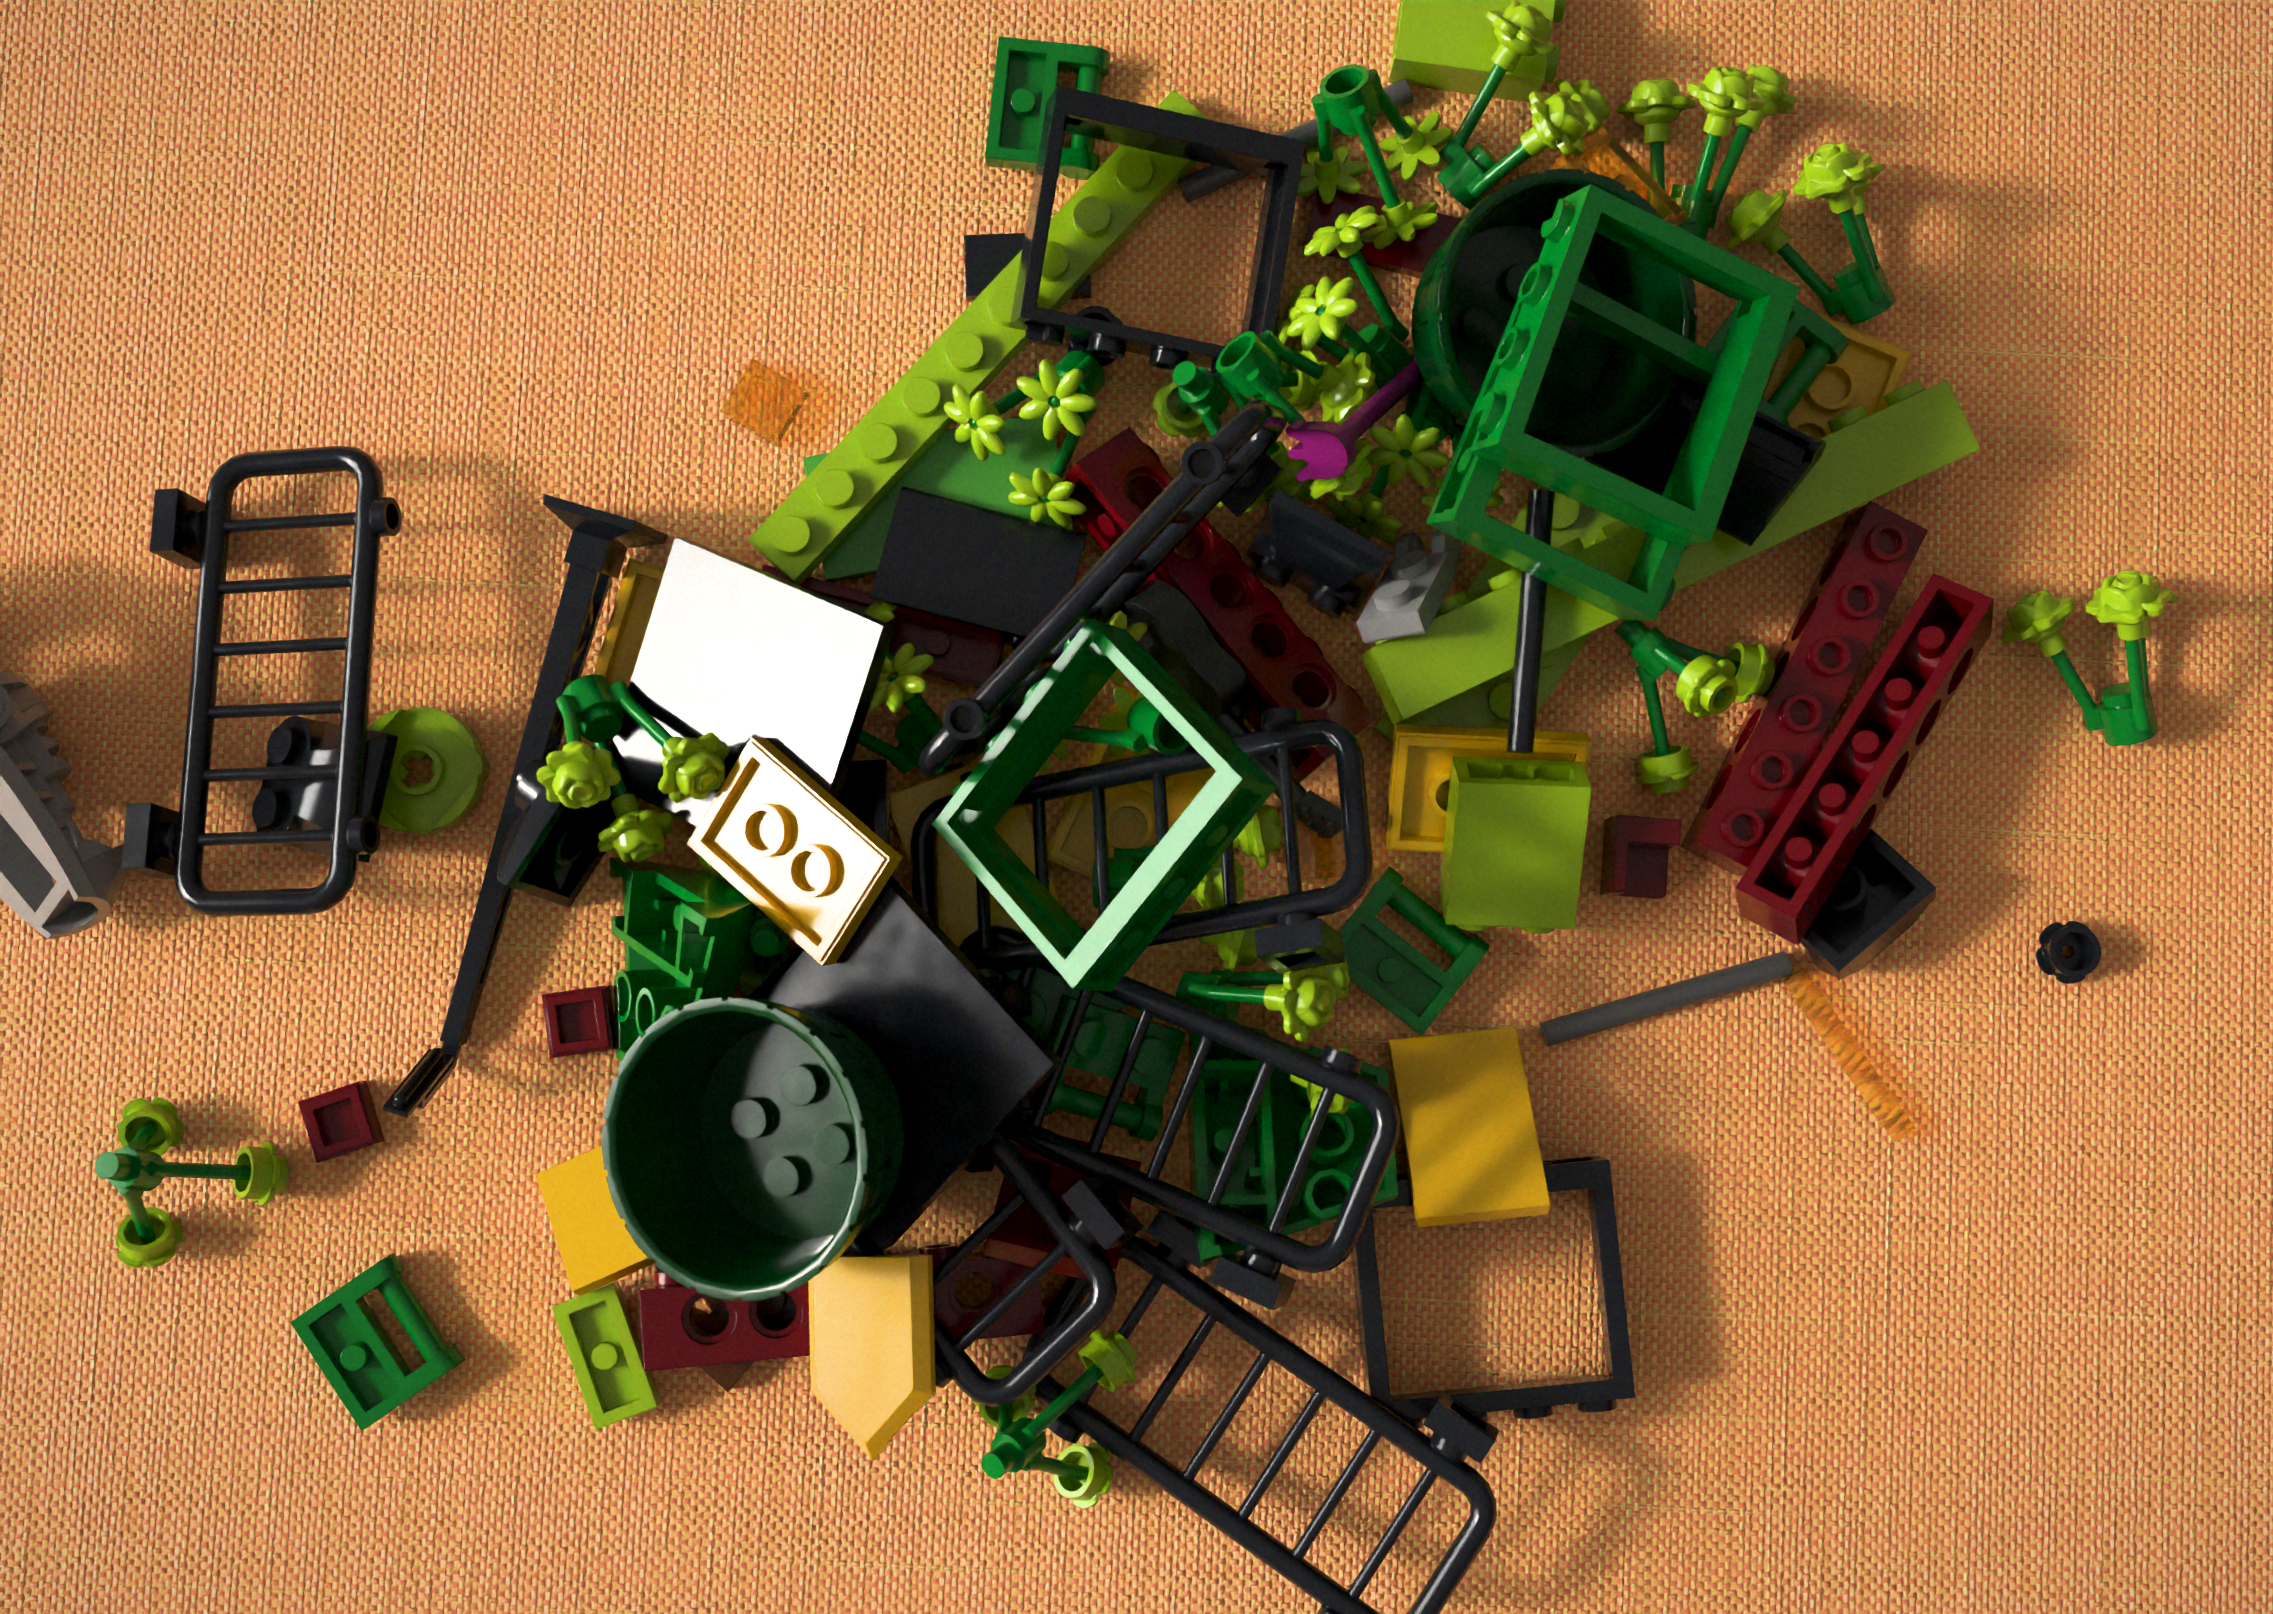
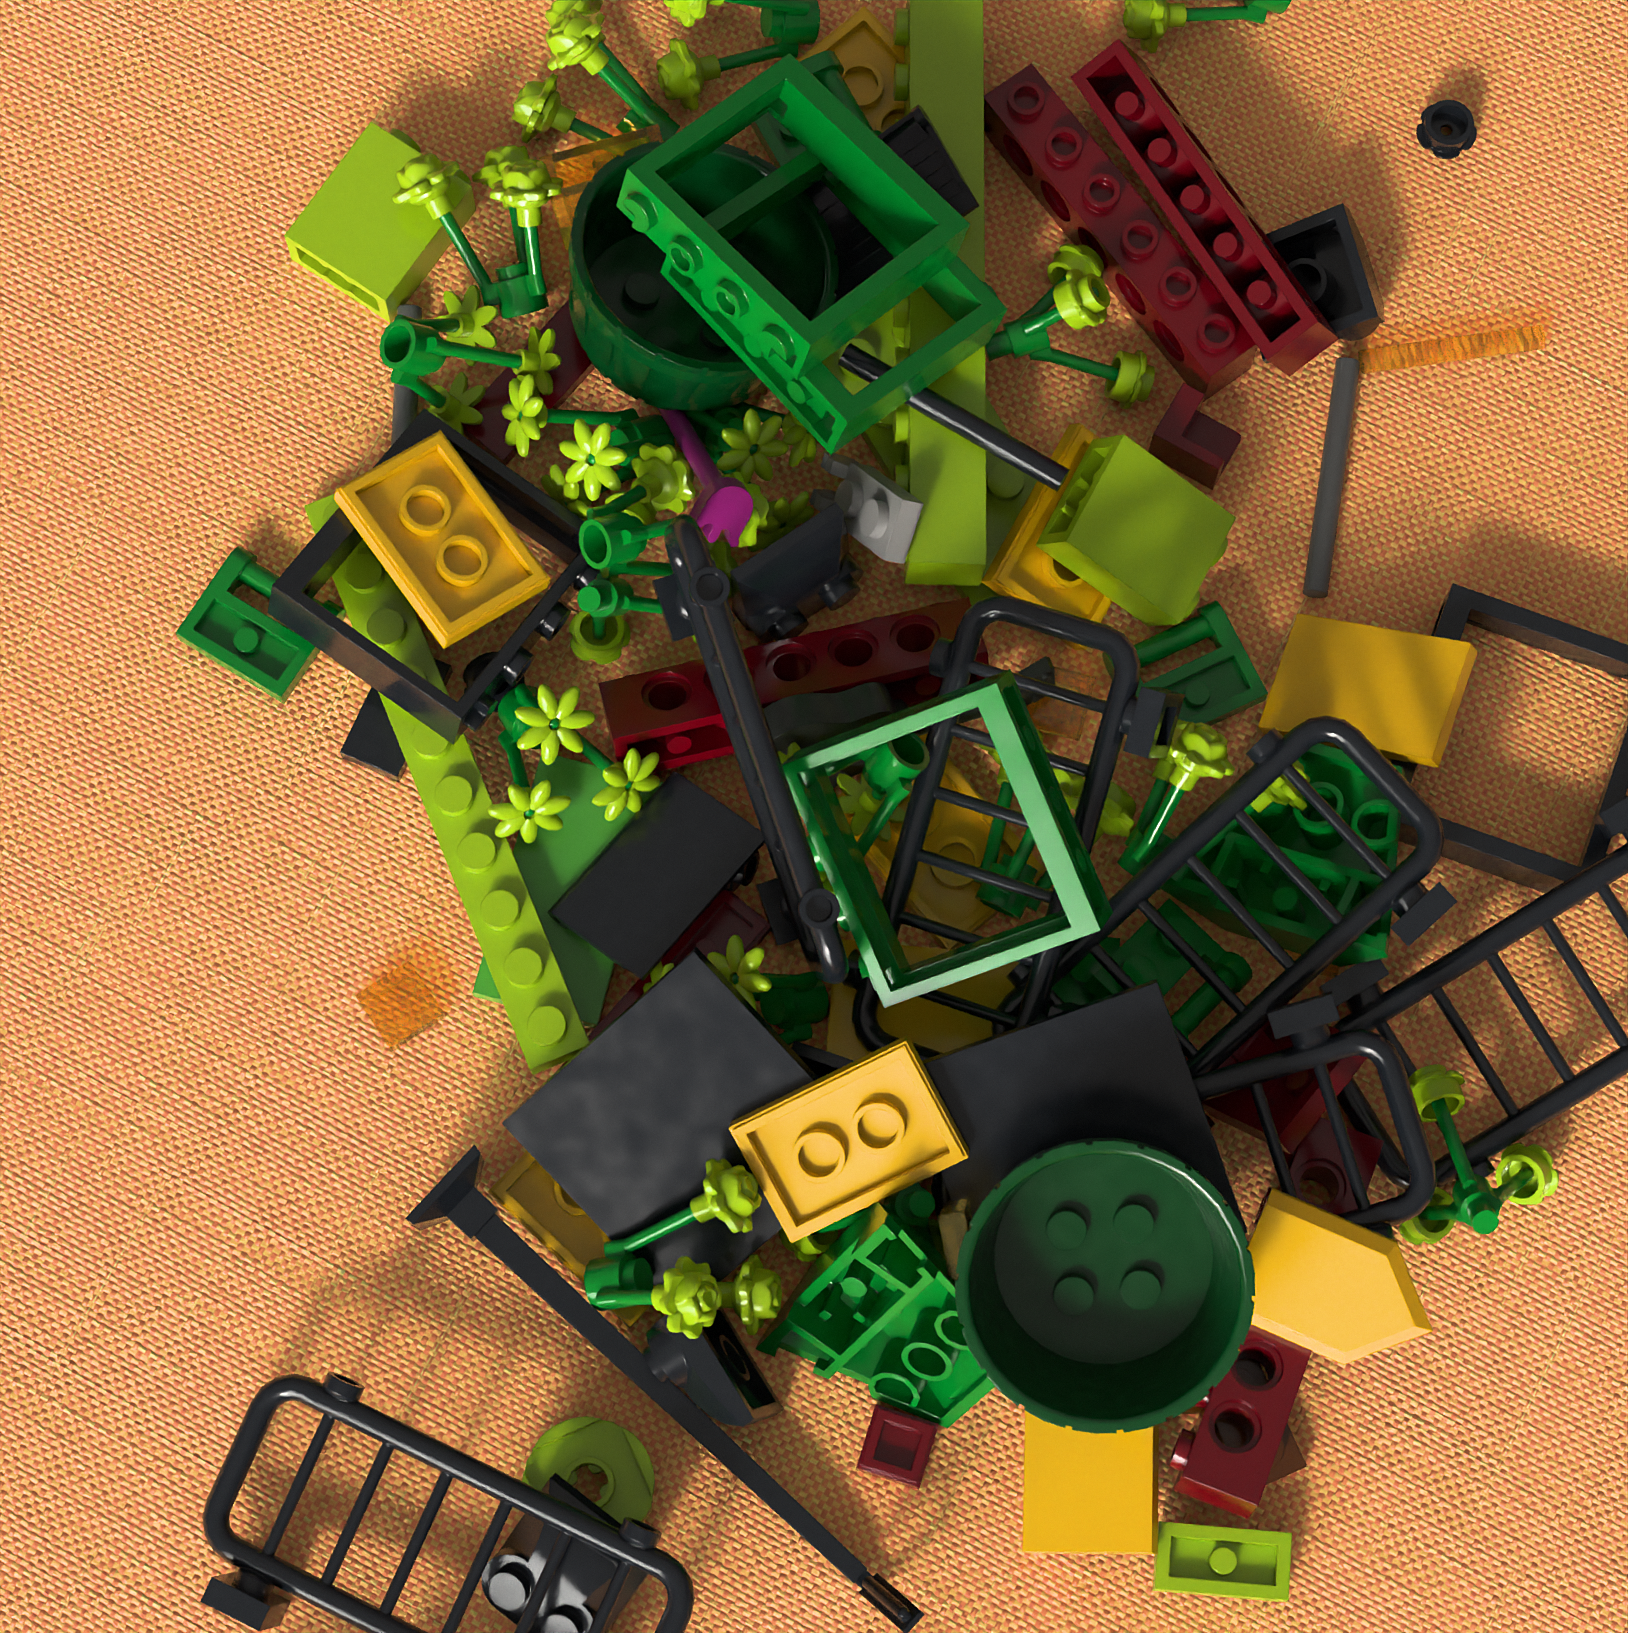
camera: 65 degrees left, 10 degrees down
(758, 982) = (953, 1223): none -> clear yellow tile
(1184, 216) = (442, 539): none -> yellow tile

